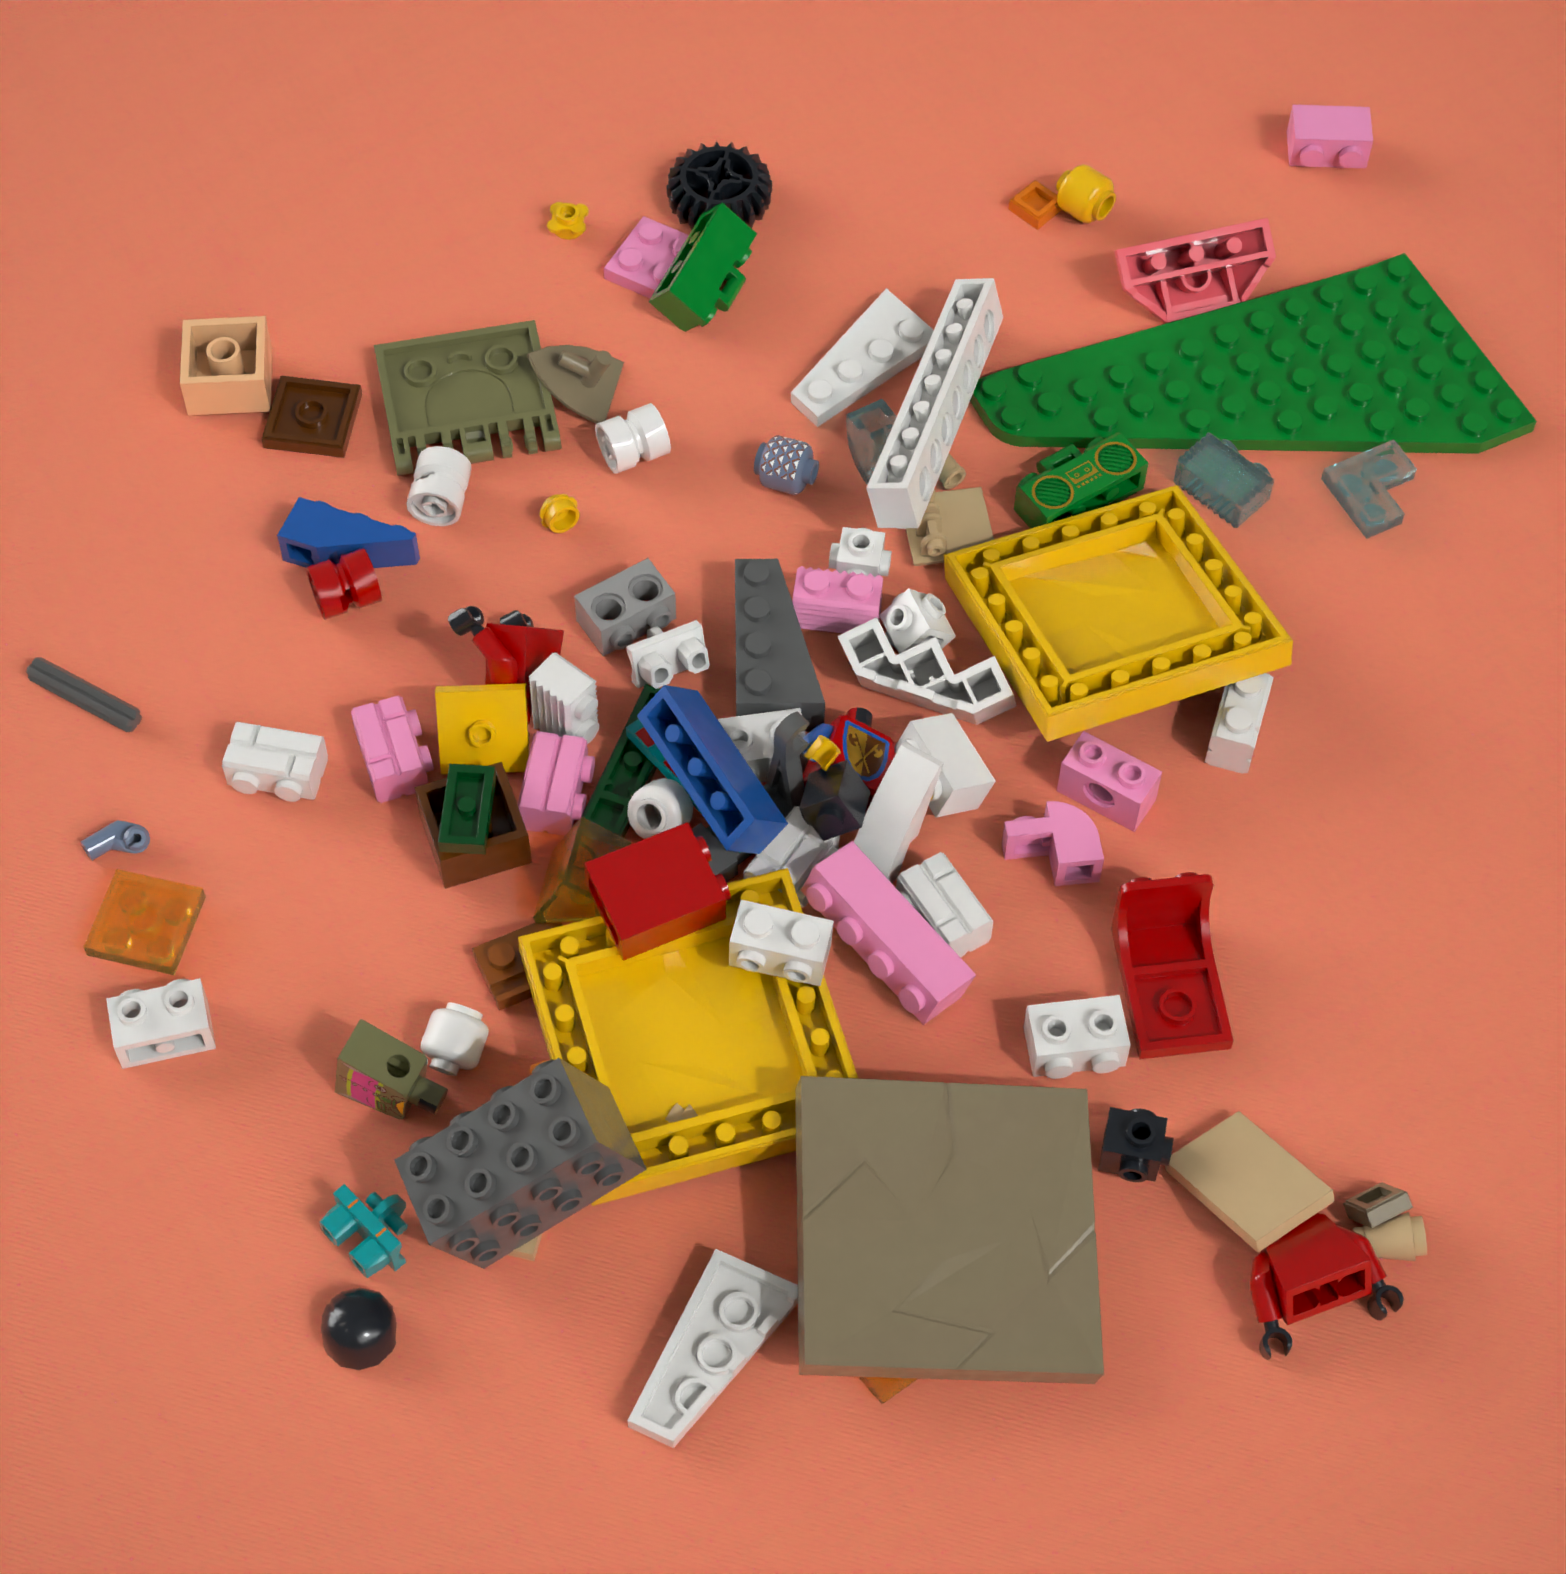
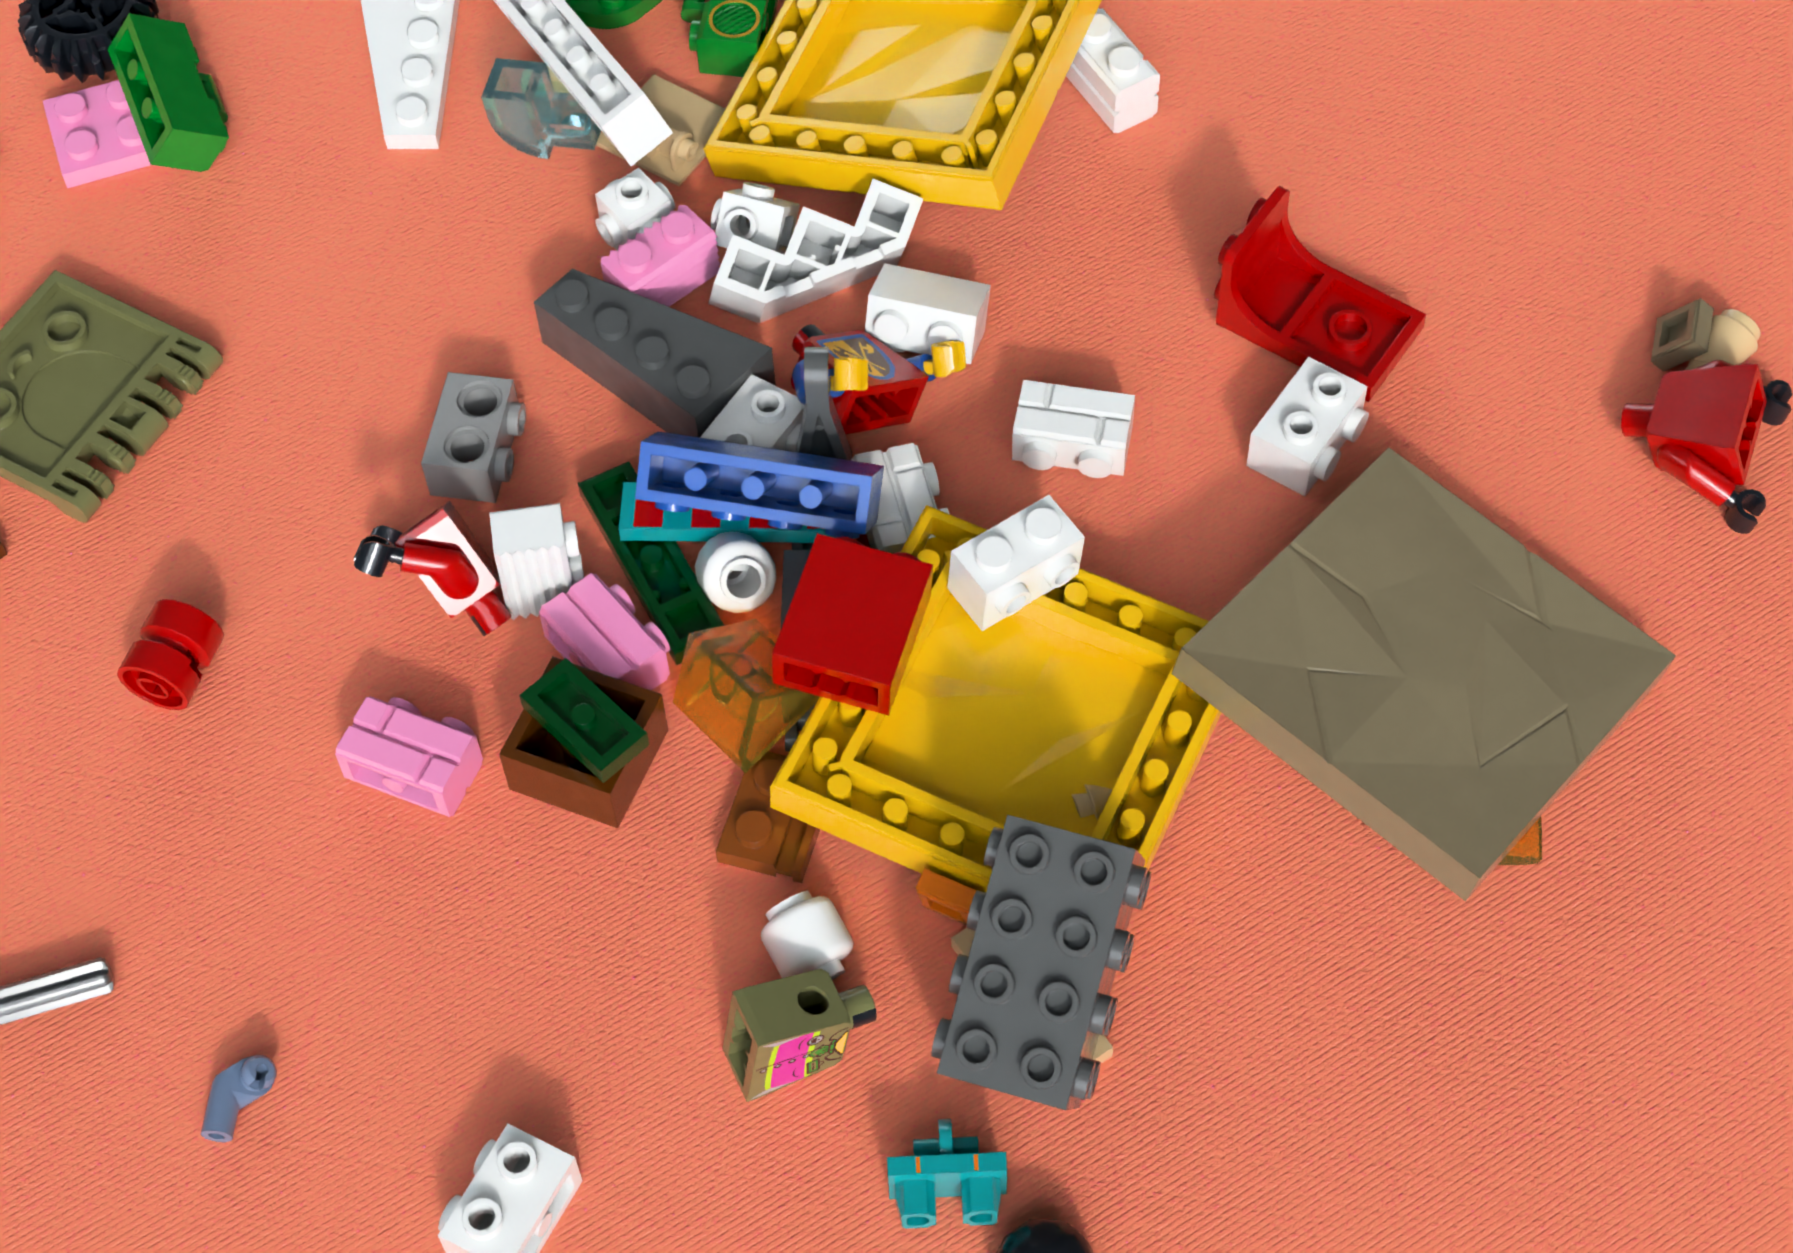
camera: 45 degrees left, 0 degrees up
(145, 922) = (368, 1137): clear yellow plate -> none
(275, 761) = (310, 872): white brick -> none
(324, 533) = (95, 628): blue slope -> none
(439, 486) = (152, 488): white wheel -> none
(483, 725) = (484, 651): yellow plate -> none
(559, 513) = (298, 414): yellow plate -> none
(578, 378) = (165, 284): dark tan shield -> none
(638, 436) = (290, 290): white wheel -> none
(668, 653) = (563, 442): white hips -> none
(714, 1339) = (1346, 944): white wing -> none
(786, 465) = (464, 194): sand blue head -> none
(834, 800) = (895, 414): black brick -> none
(887, 932) = (1092, 482): bright pink brick -> none
(898, 809) = (957, 384): white slope -> none
(1065, 836) = (1096, 283): bright pink brick -> none
(1109, 781) = (1072, 207): bright pink brick -> none
(1135, 1144) = (1466, 458): black brick -> none
(1249, 1181) = (1579, 405): tan tile -> none

